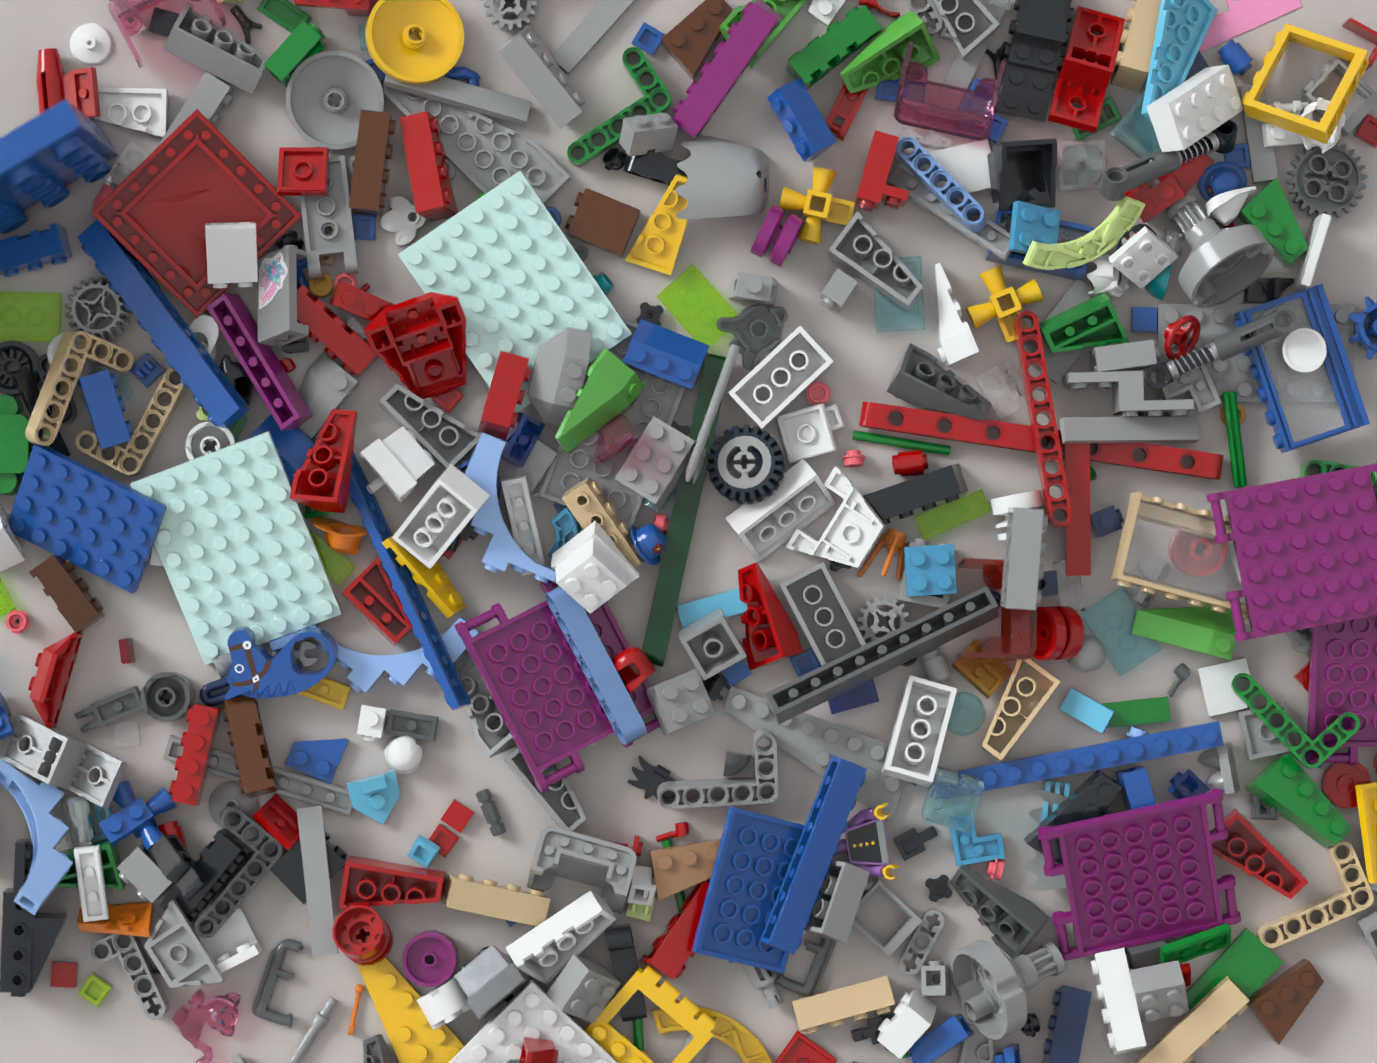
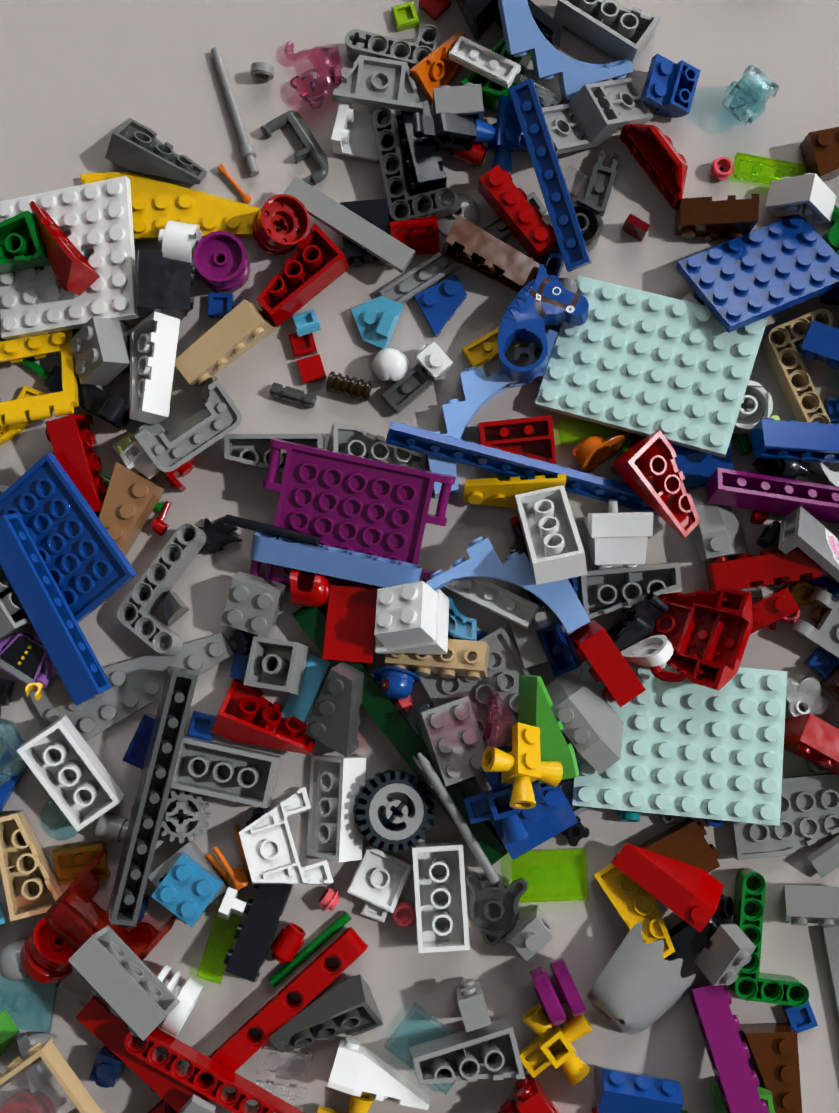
camera: 135 degrees right, 5 degrees down
(149, 750) = (549, 175): none -> blue plate
(447, 773) = (348, 386): none -> dark brown piece
(454, 394) = (637, 622): none -> black piece
(465, 933) = (220, 304): none -> blue tile
(467, 364) = (654, 653): none -> white piece
(611, 733) = (272, 530): none -> black bar
(625, 206) = (677, 885): none -> red wedge
(631, 397) = (522, 765): none -> yellow brick
(633, 613) = (350, 624): none -> red tile
(670, 389) = (495, 805): none -> blue brick
(706, 569) = (337, 710): none -> dark grey wedge
(915, 527) = (231, 904): none -> white tile

